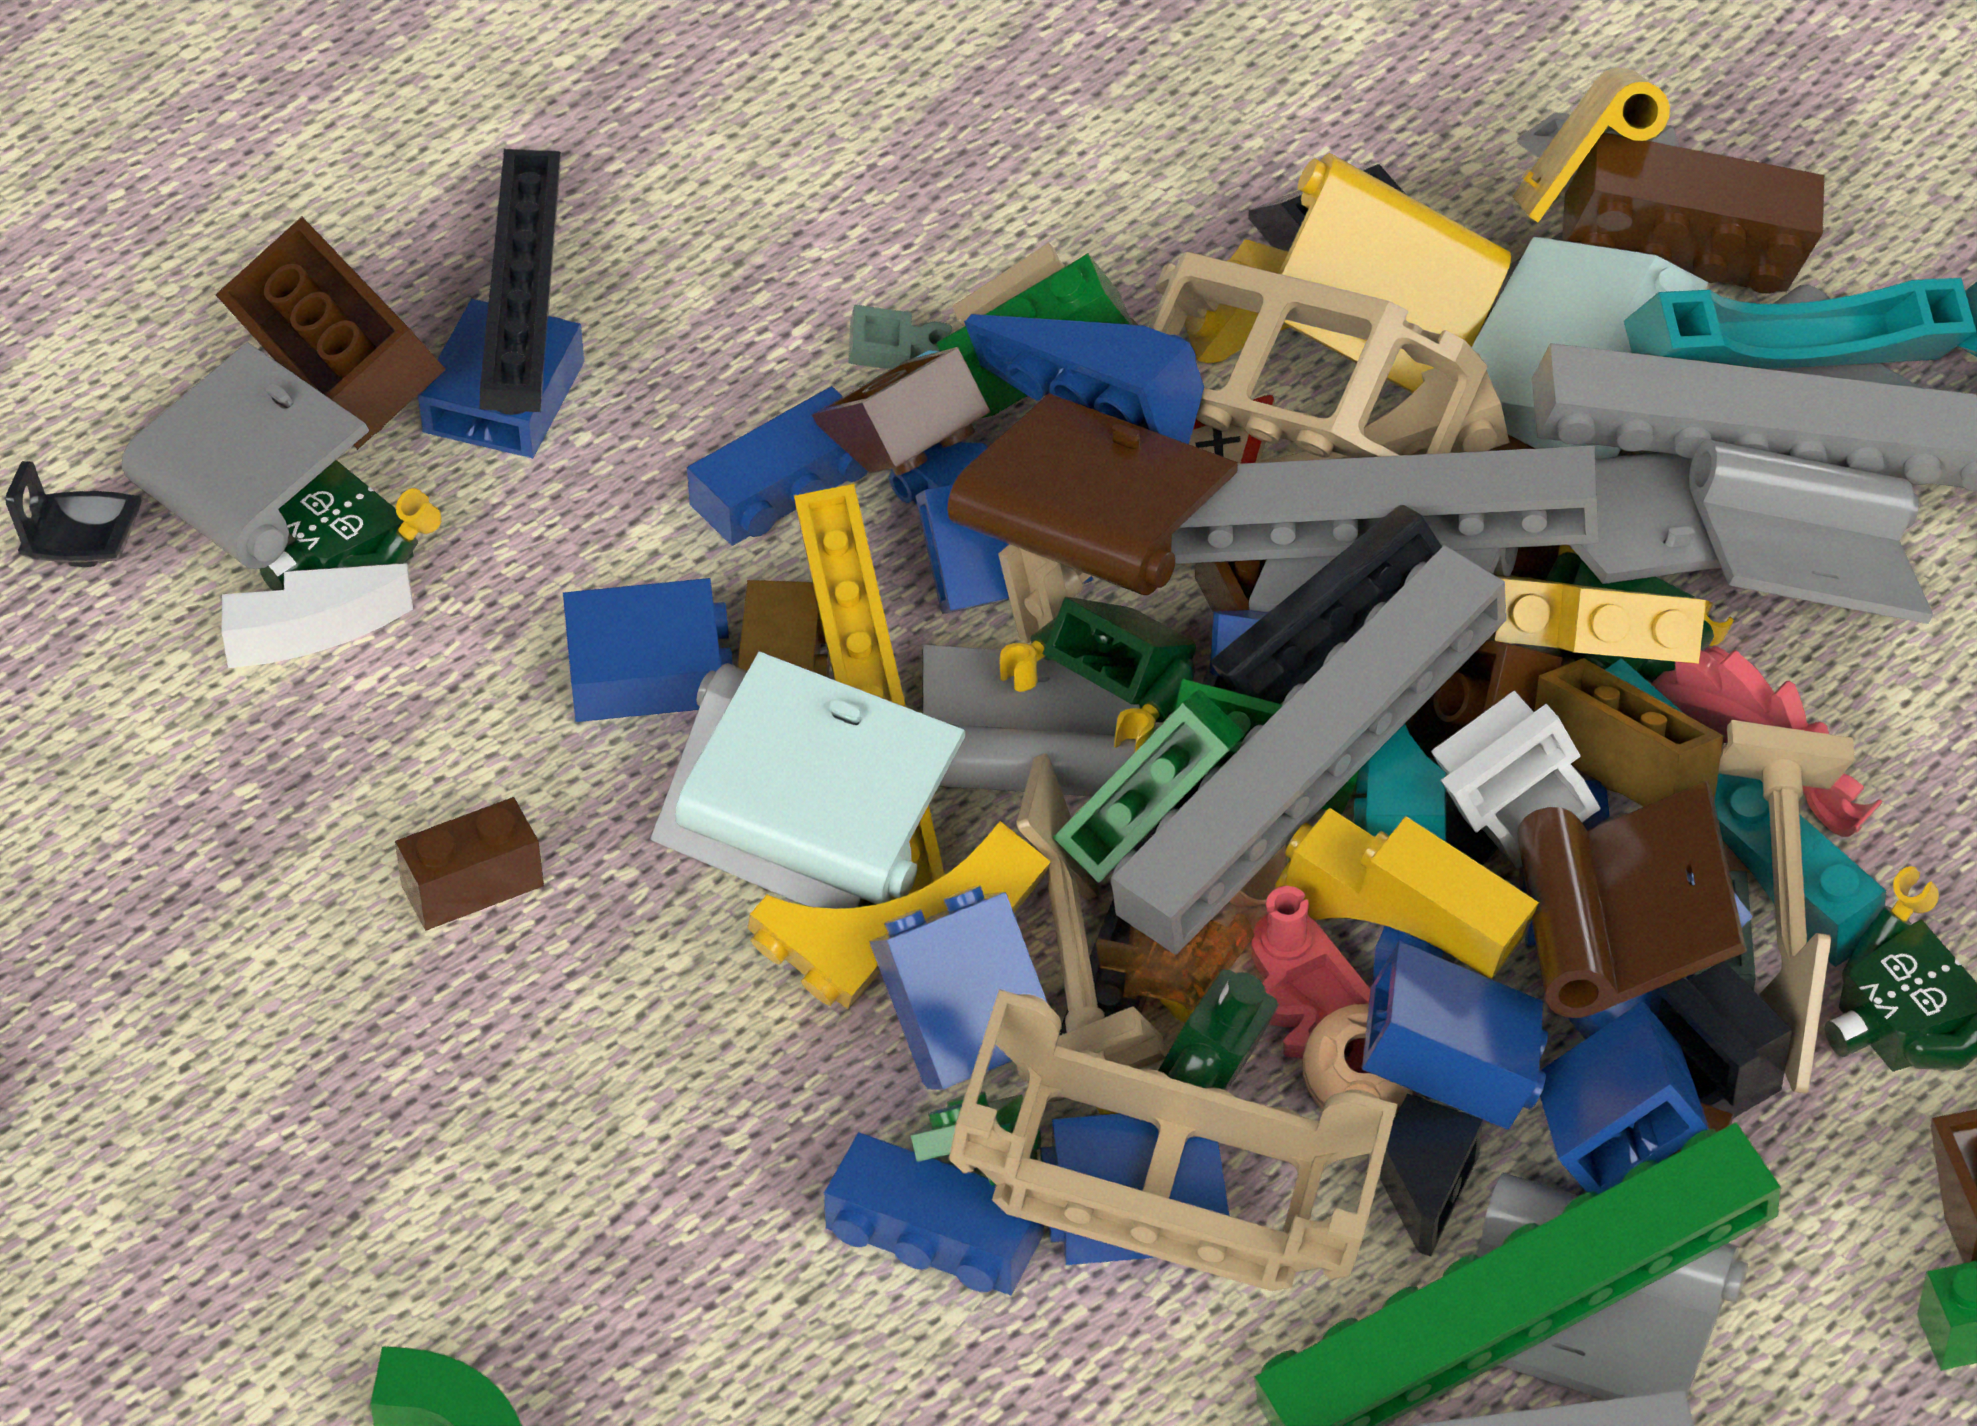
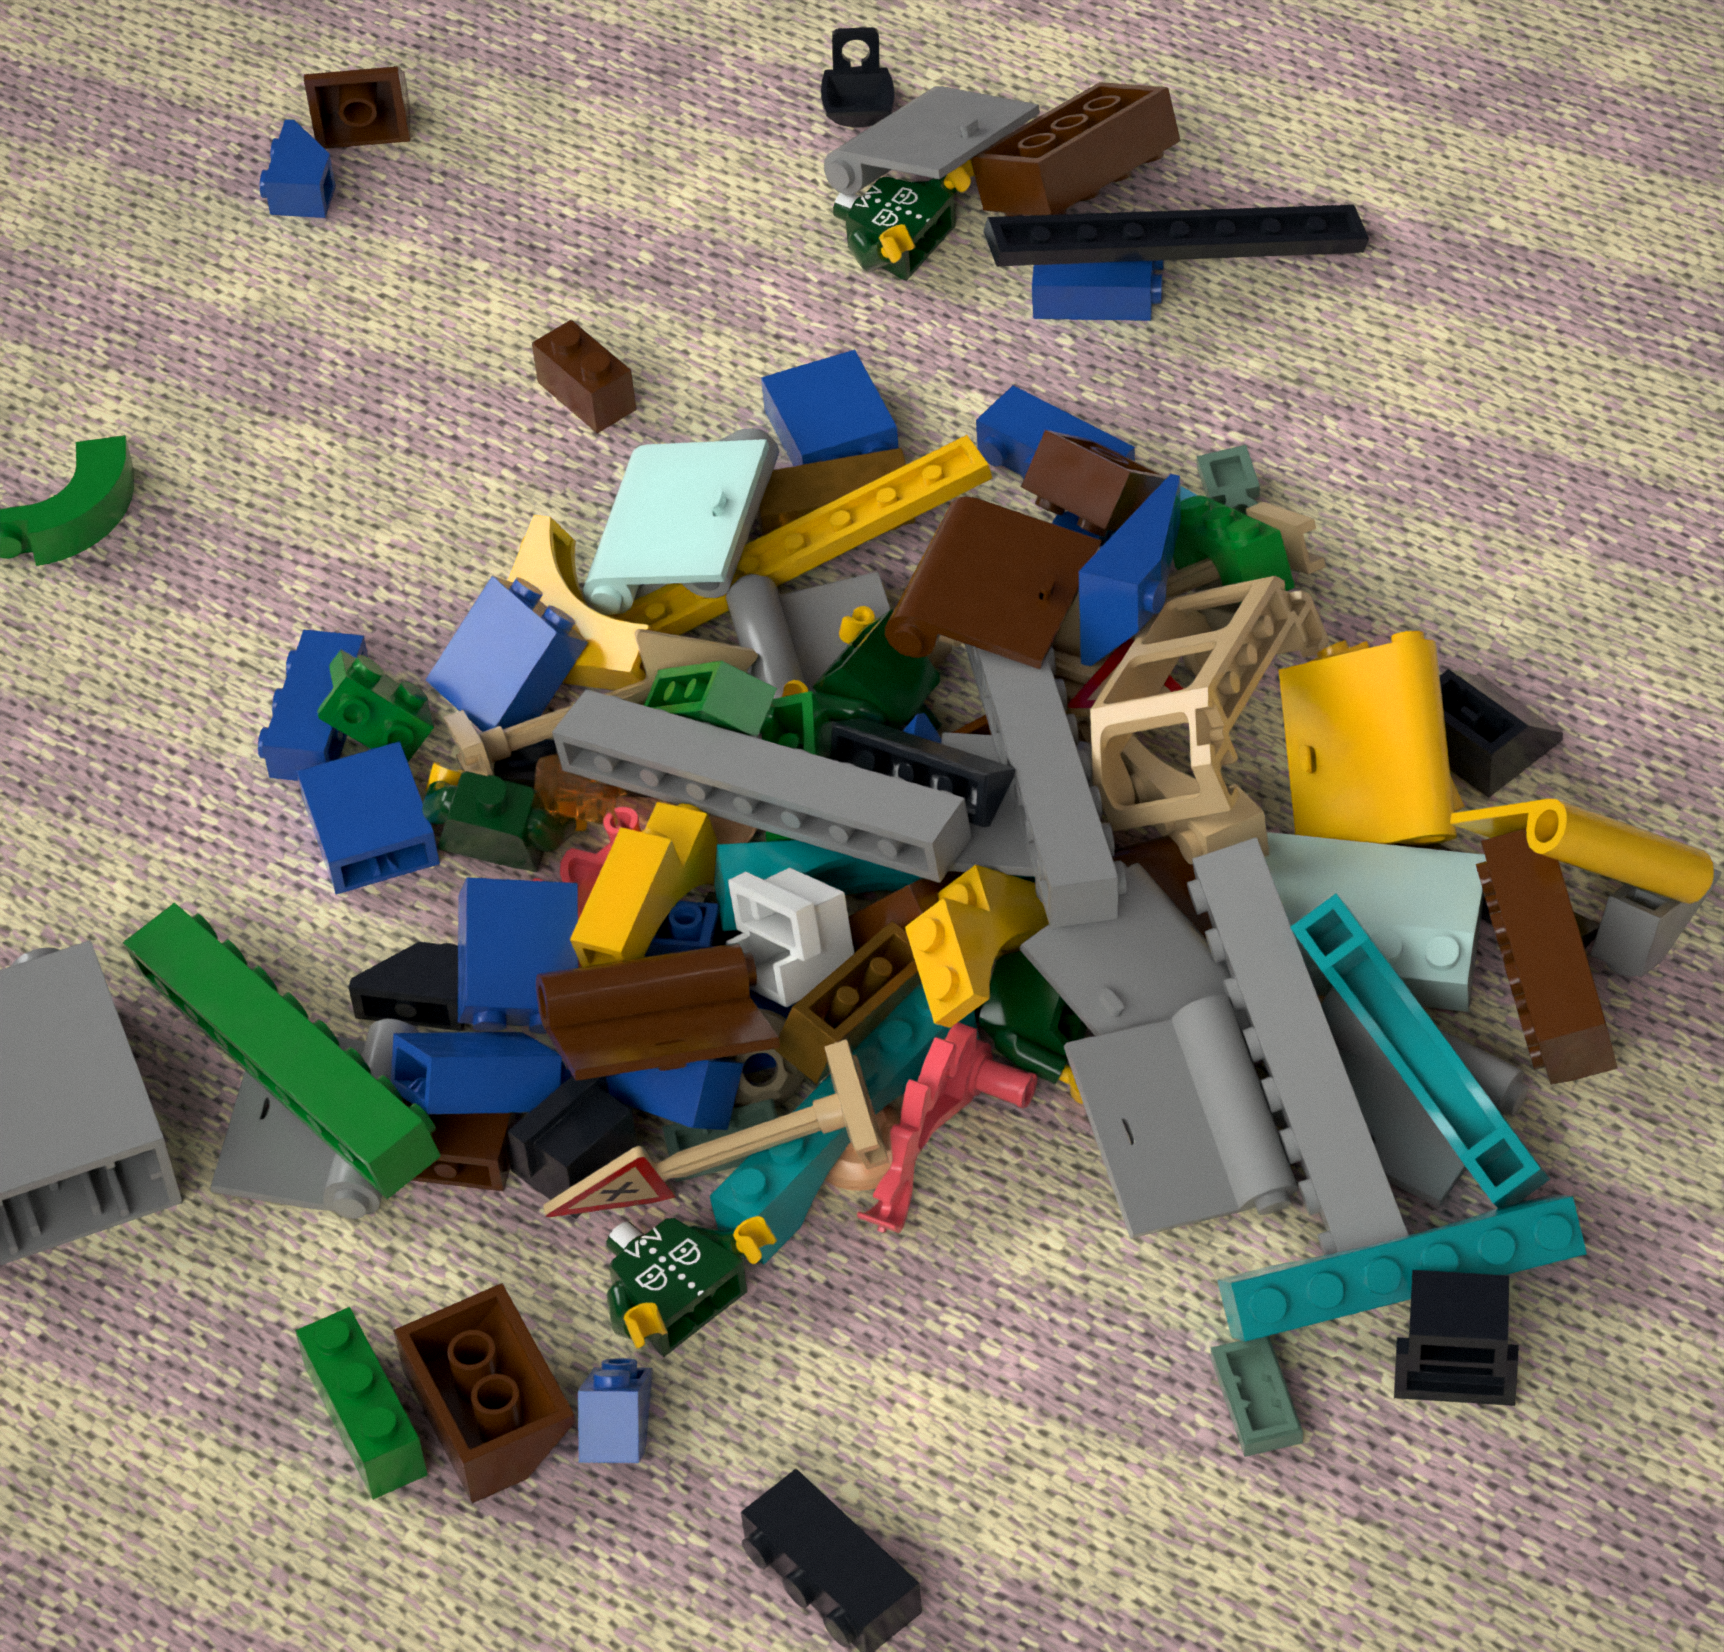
camera: 80 degrees right, 0 degrees up
(312, 612) = (809, 232): white slope -> none
(1147, 1219) = (274, 890): tan windscreen -> none

